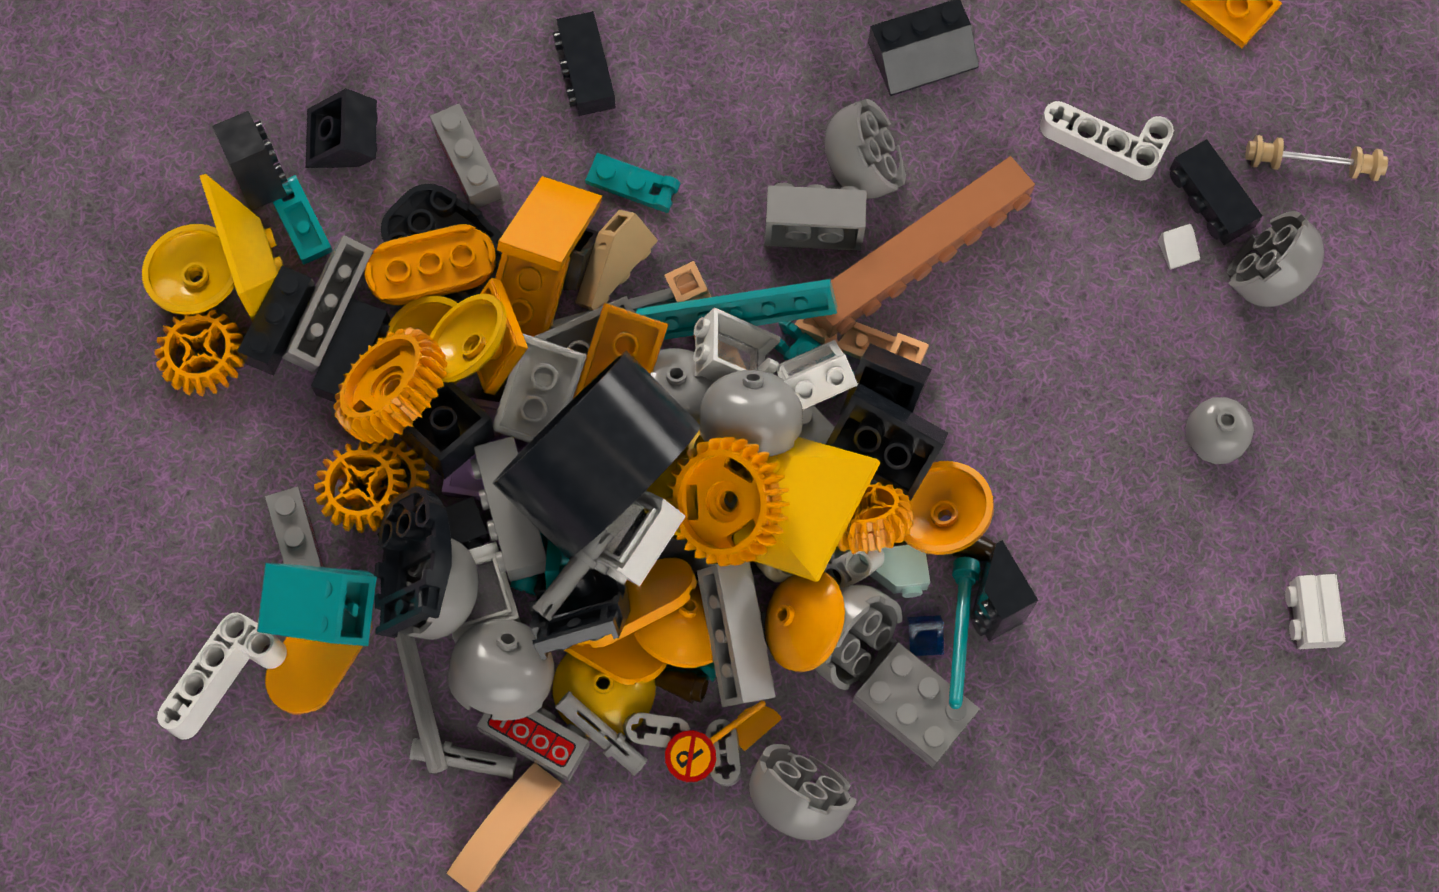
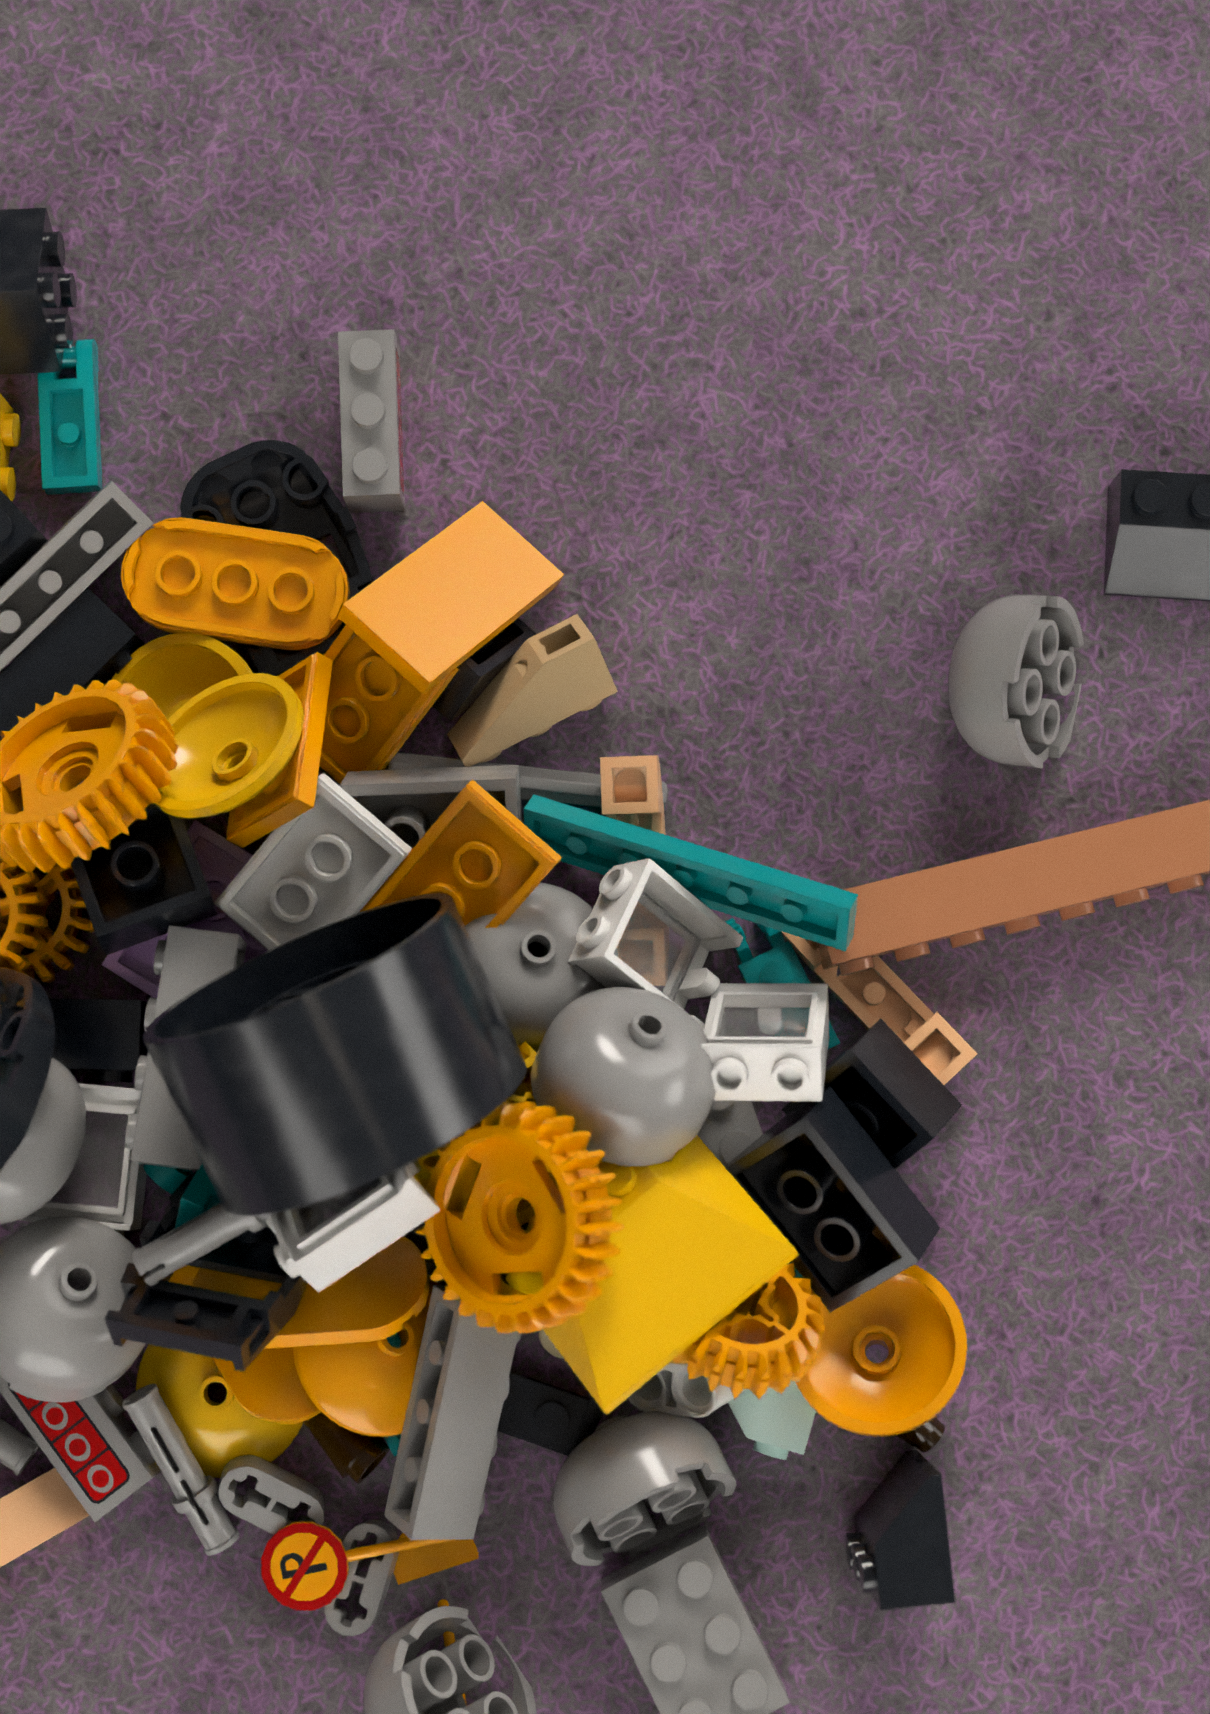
camera: 25 degrees right, 10 degrees up
(341, 131) = (196, 297): black slope -> none
(584, 64) = (628, 339): black brick -> none
(632, 182) = (621, 571): teal plate -> none
(804, 622) = (564, 1454): light orange dish -> none
(815, 217) = (888, 760): light grey brick -> none
(926, 635) = (763, 1522): clear blue slope -> none
(966, 573) = (867, 1461): teal piece -> none

